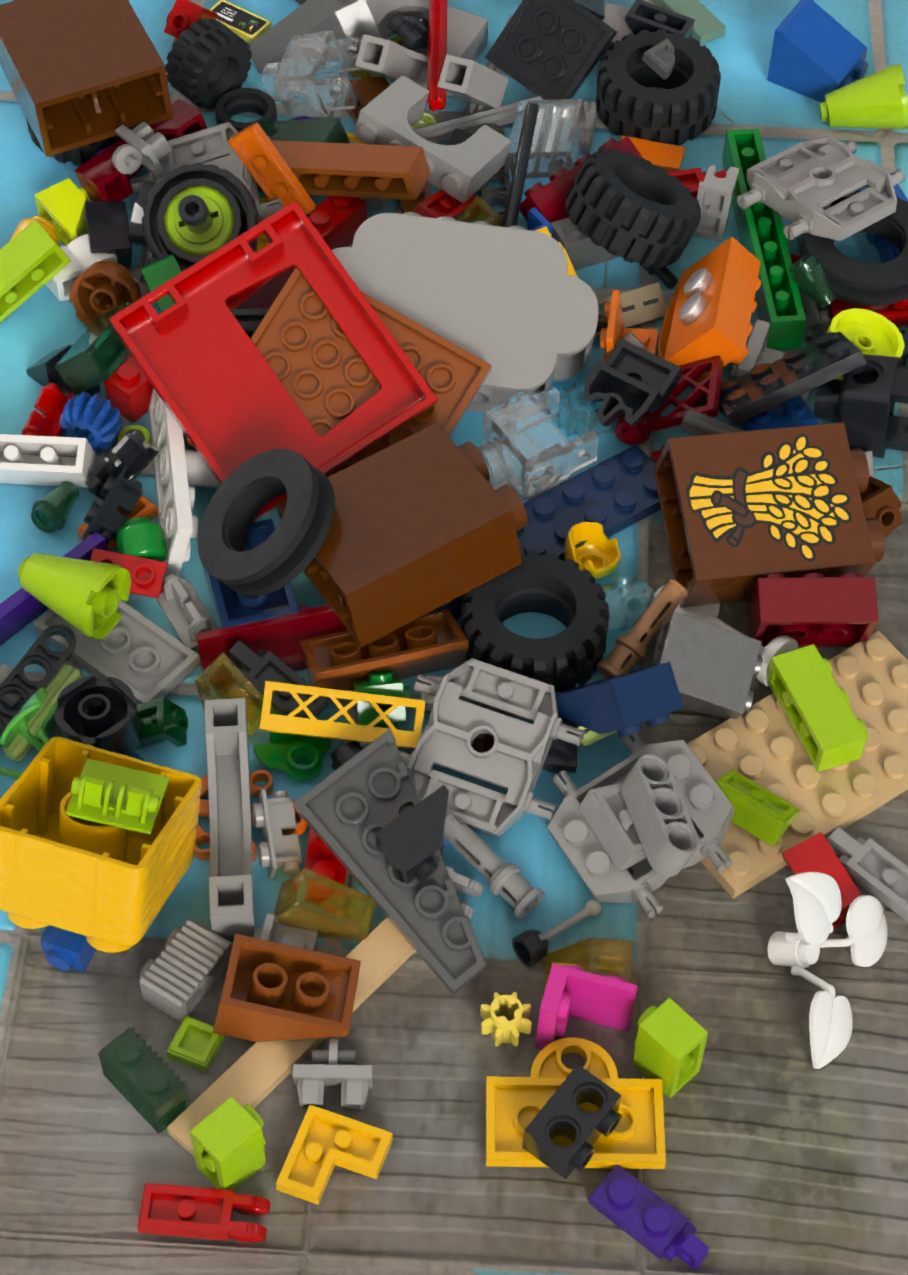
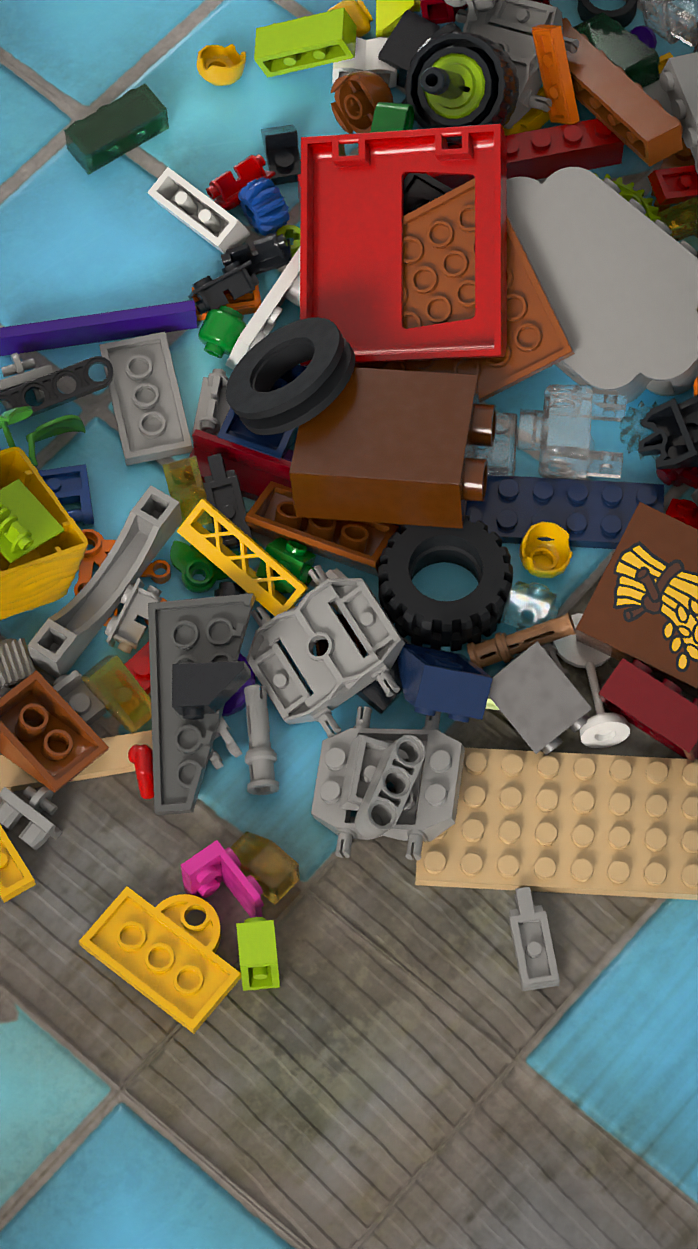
camera: 40 degrees right, 10 degrees up
(20, 746) = (80, 407): yellowish green axle -> none
(54, 508) = (188, 260): clear green cone -> none
(77, 590) = (137, 342): lime cone -> none
(93, 355) = (285, 154): clear green brick -> none
(99, 715) = (72, 452): black brick -> none
(145, 574) = (191, 347): red hinge -> none
(162, 721) = (122, 478): dark green bracket -> none
(410, 959) = (142, 759): none -> red arm
(505, 1019) = (168, 850): light yellow gear -> none
(533, 945) = (241, 819): hinge -> none
(565, 1118) = (146, 946): black brick -> none
(648, 1218) = (153, 1056): dark purple hinge -> none
(757, 808) = (480, 828): lime slope -> none
(815, 909) = (411, 936): white plant -> none
(817, 708) = (593, 787): lime brick -> none
(818, 856) = (483, 918): red hinge -> none

